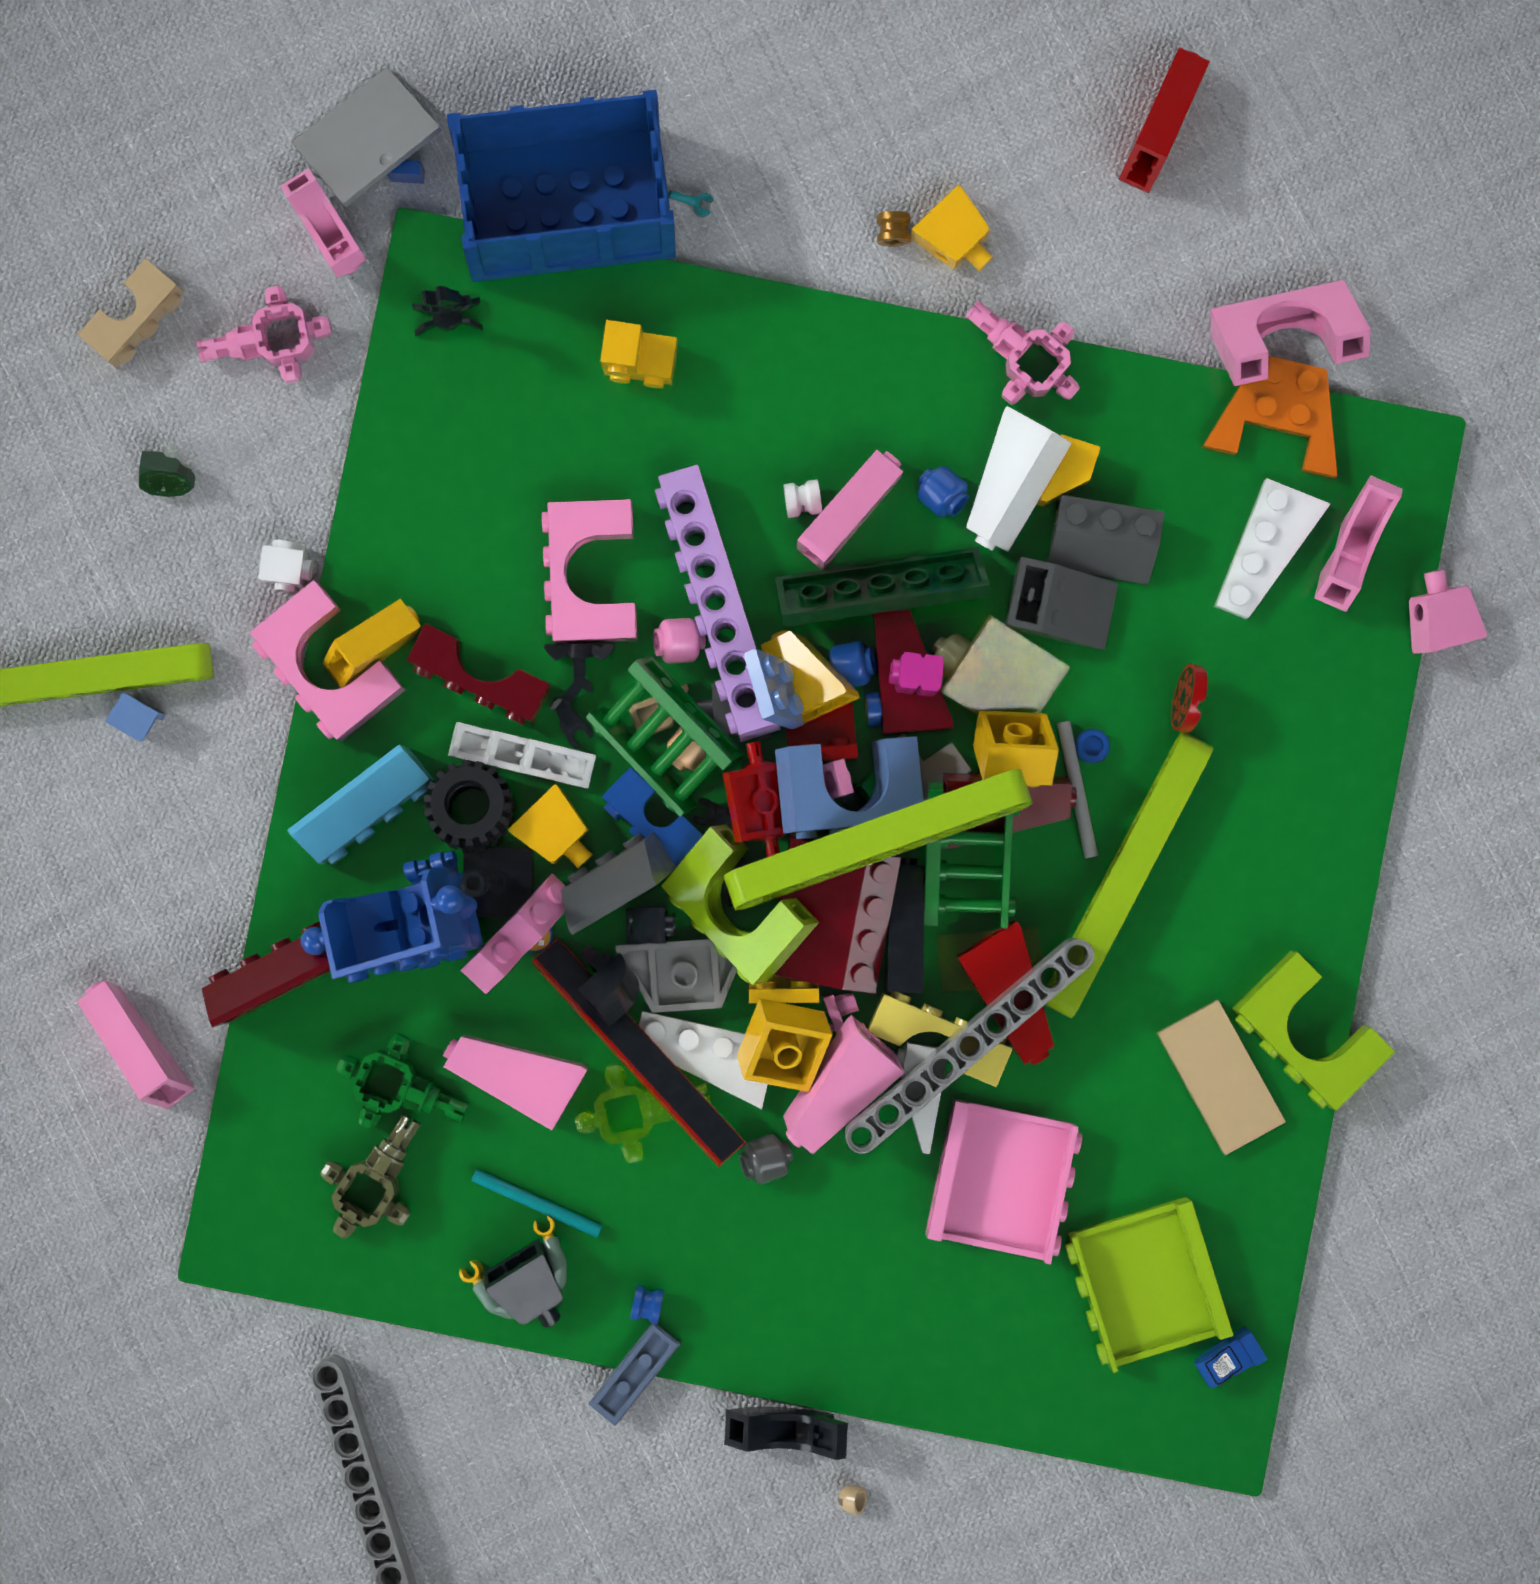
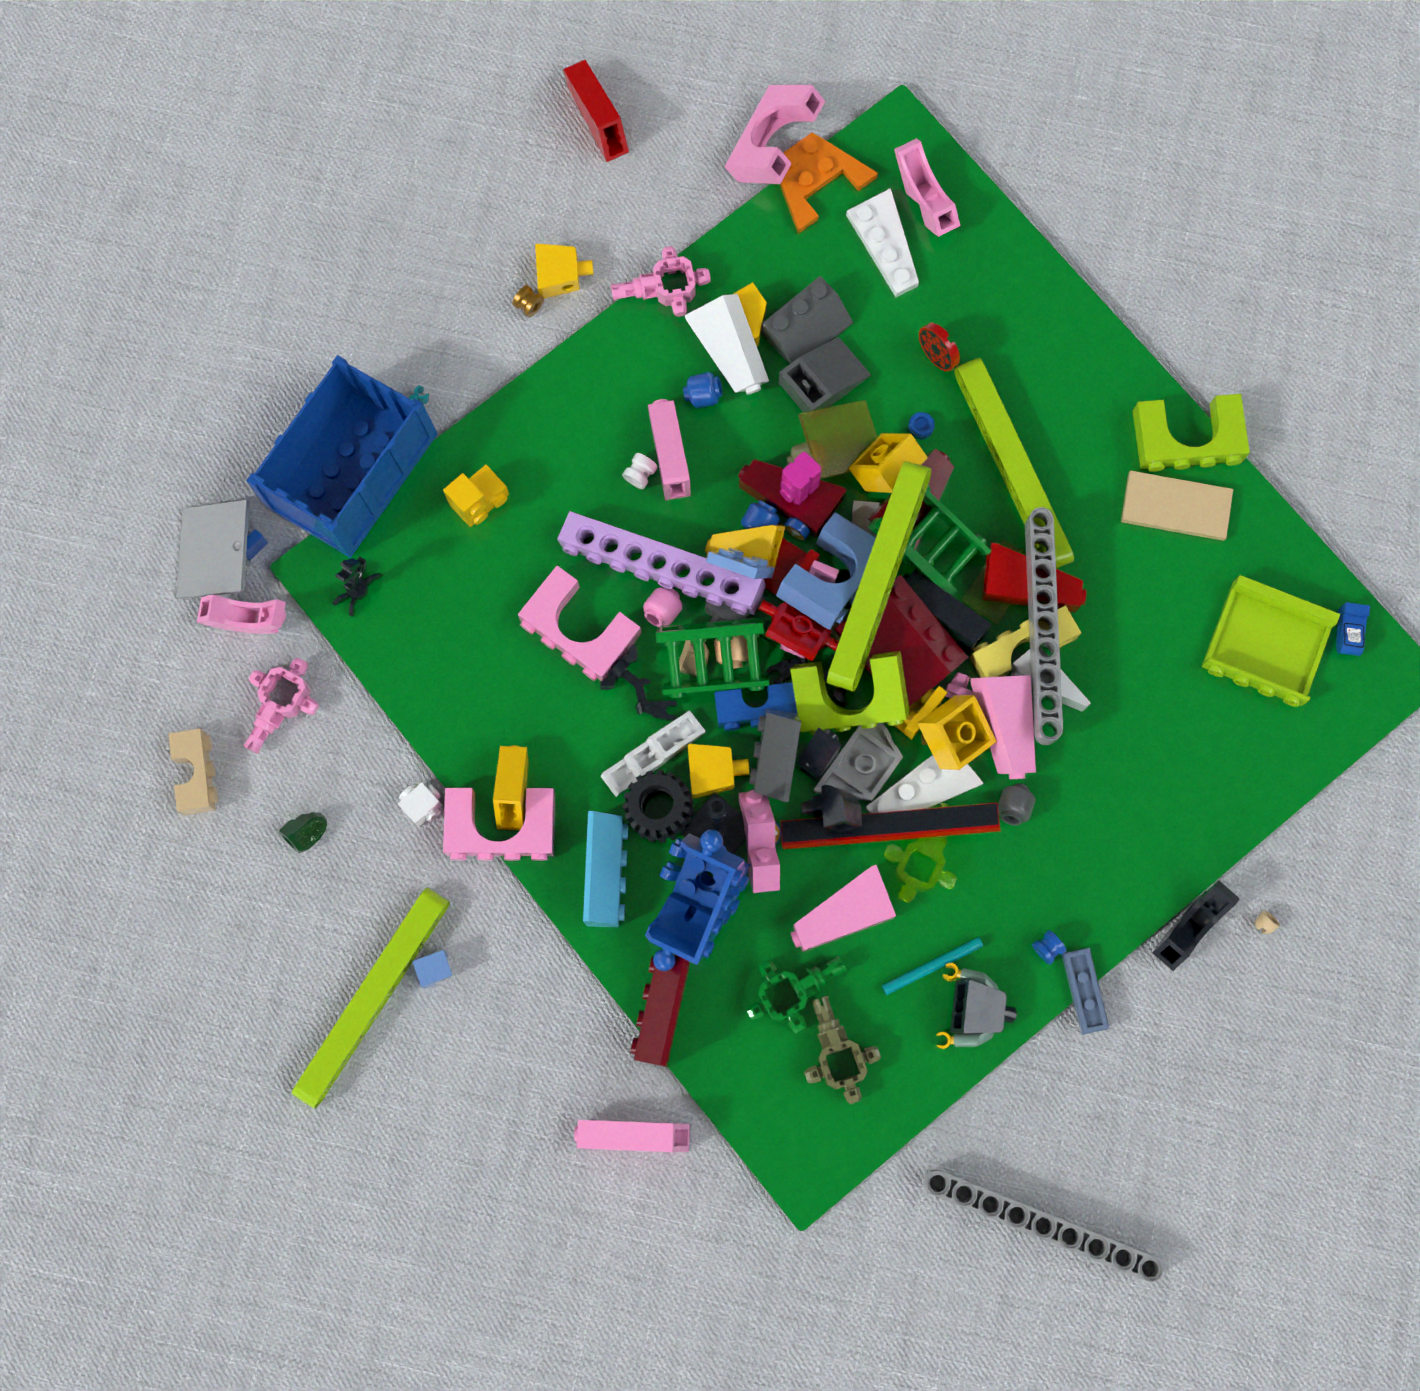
camera: 45 degrees left, 10 degrees down
(440, 656) = (615, 726): dark red arch -> none
(882, 587) = (730, 465): dark green plate -> none
(1003, 1180) = (1140, 676): bright pink panel -> none
(1075, 777) = (954, 460): light grey bar -> none
(1443, 616) = (1006, 177): bright pink torso -> none

